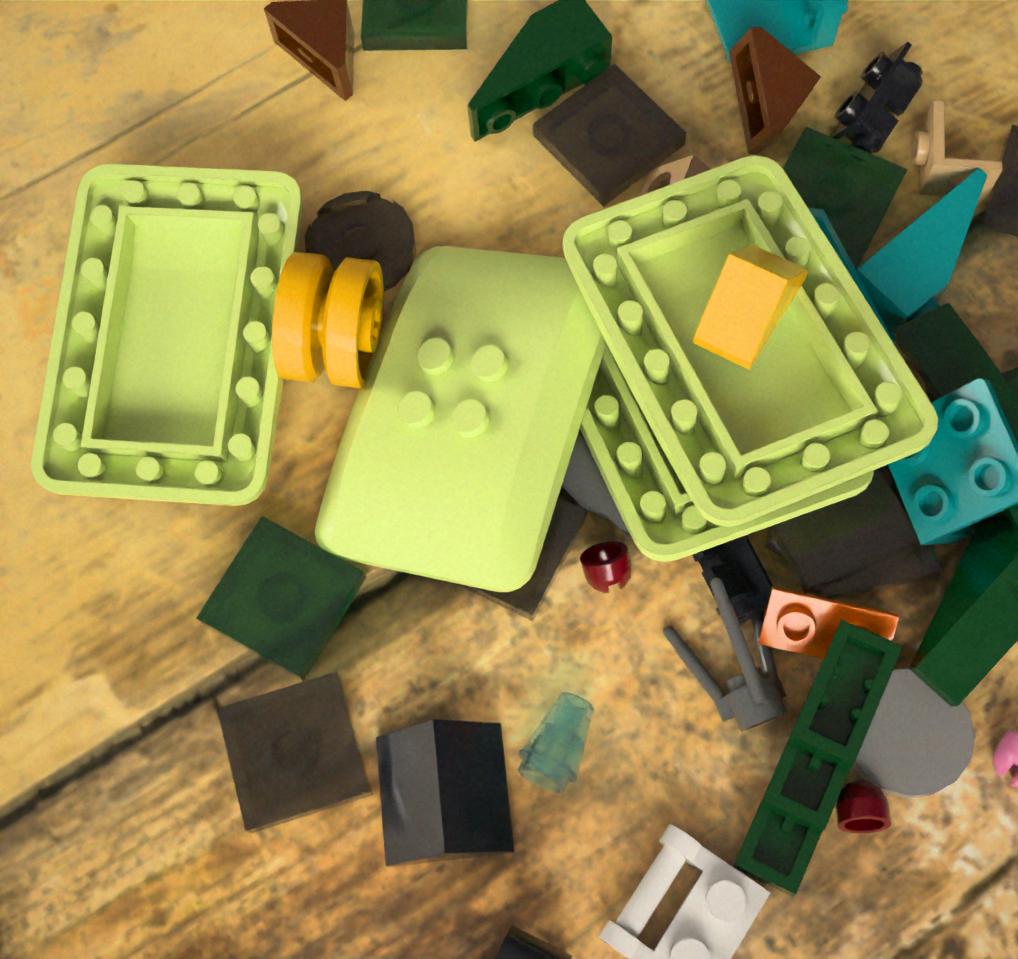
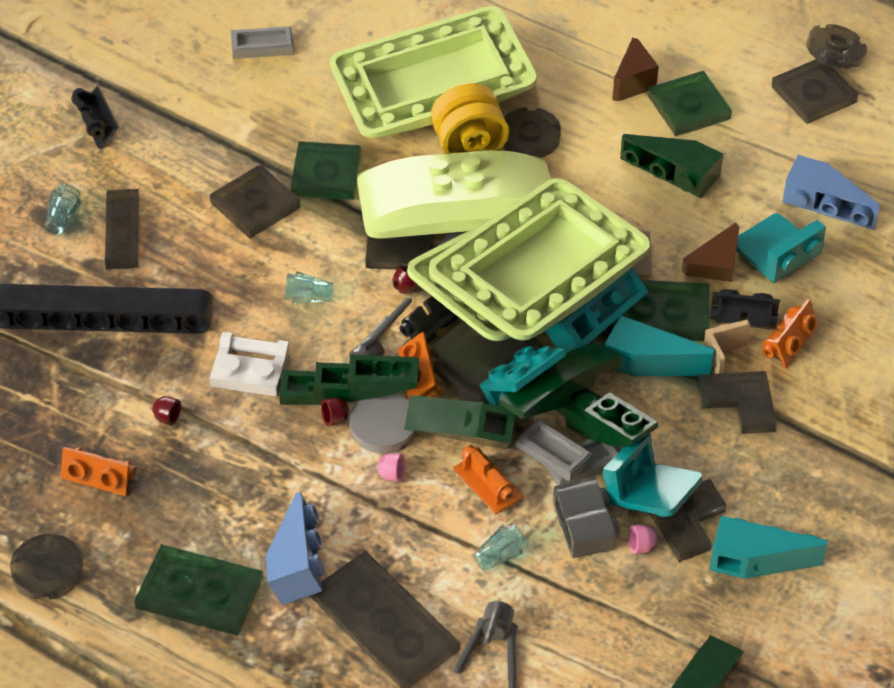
camera: 60 degrees right, 20 degrees down
(444, 792) = (264, 260): black slope -> none
(609, 134) = (656, 206): clear smoke tile -> none
(748, 304) = (553, 245): yellow slope -> none
(963, 75) = (792, 333): none -> orange hinge

